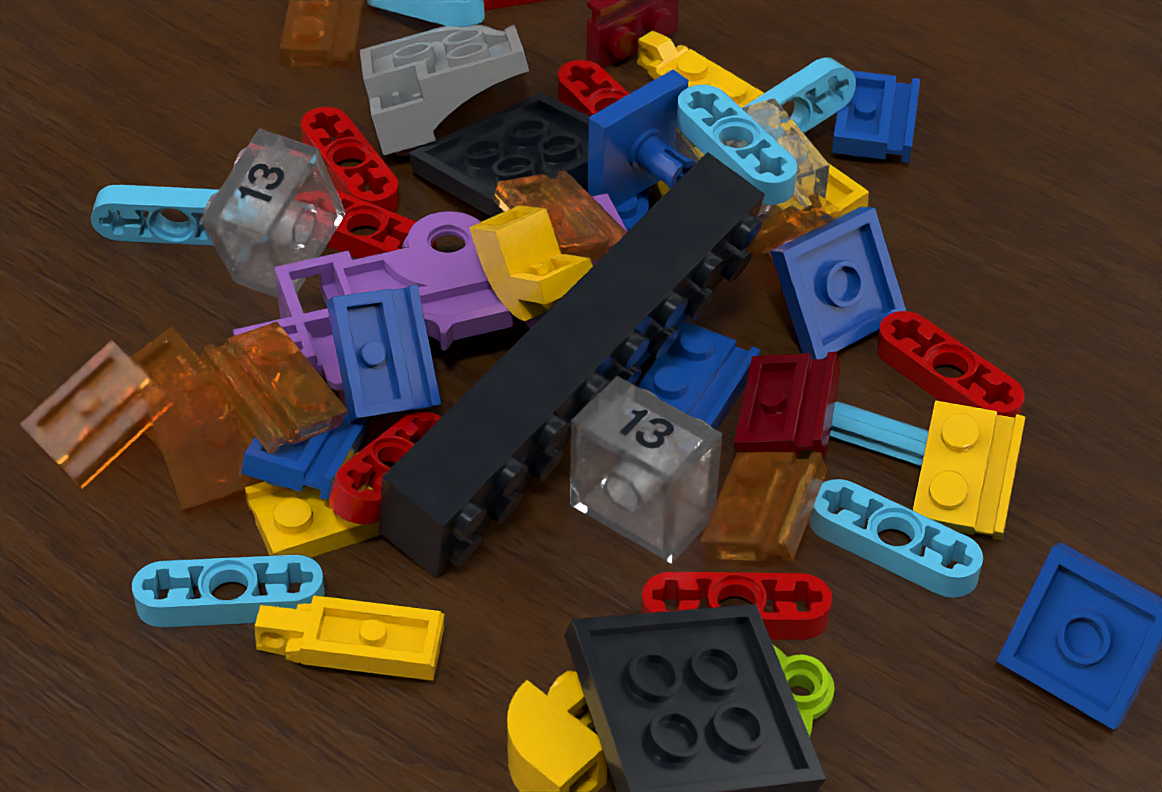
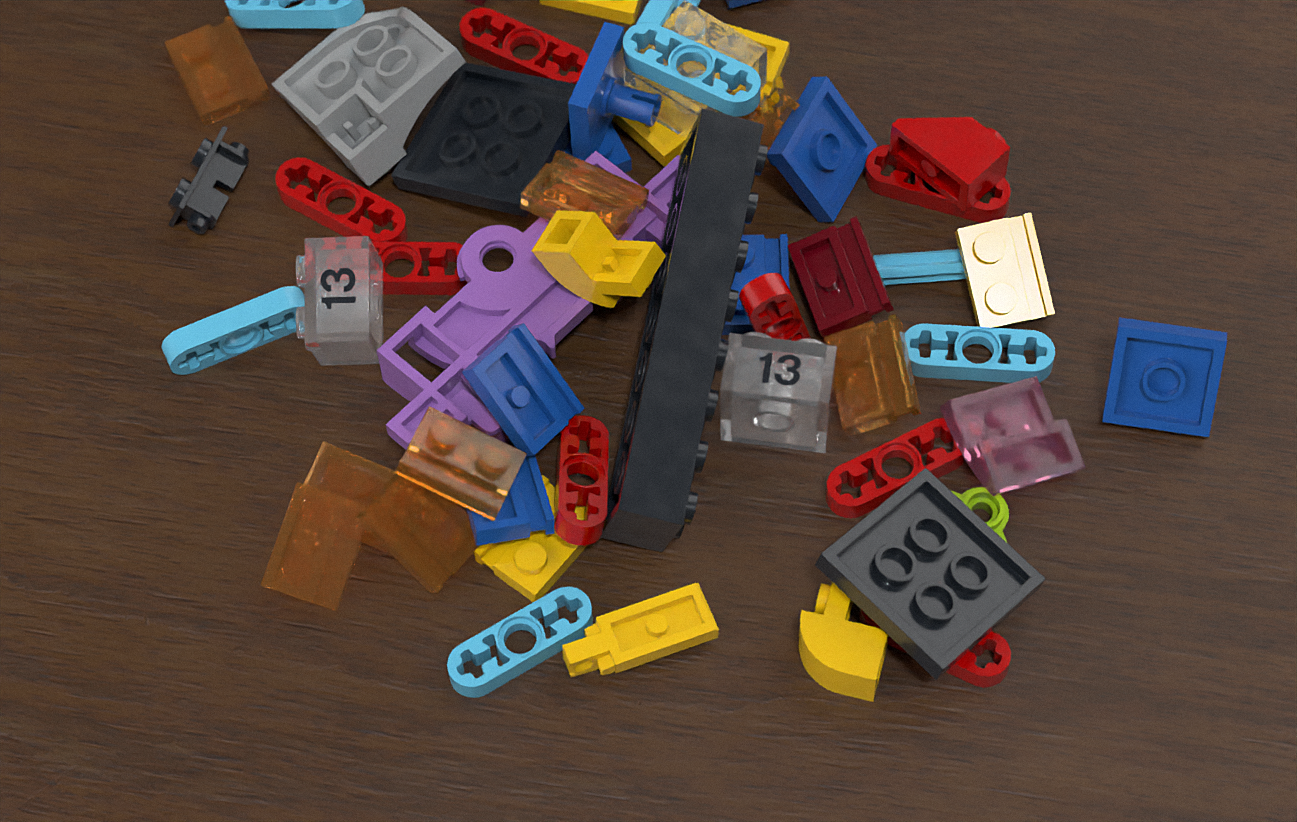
camera: 25 degrees left, 15 degrees up
(223, 104) = (217, 165): none -> black hinge
(689, 377) = (773, 308): none -> red beam
(880, 625) = (1012, 436): none -> clear pink slope
(974, 339) = (951, 155): none -> red slope

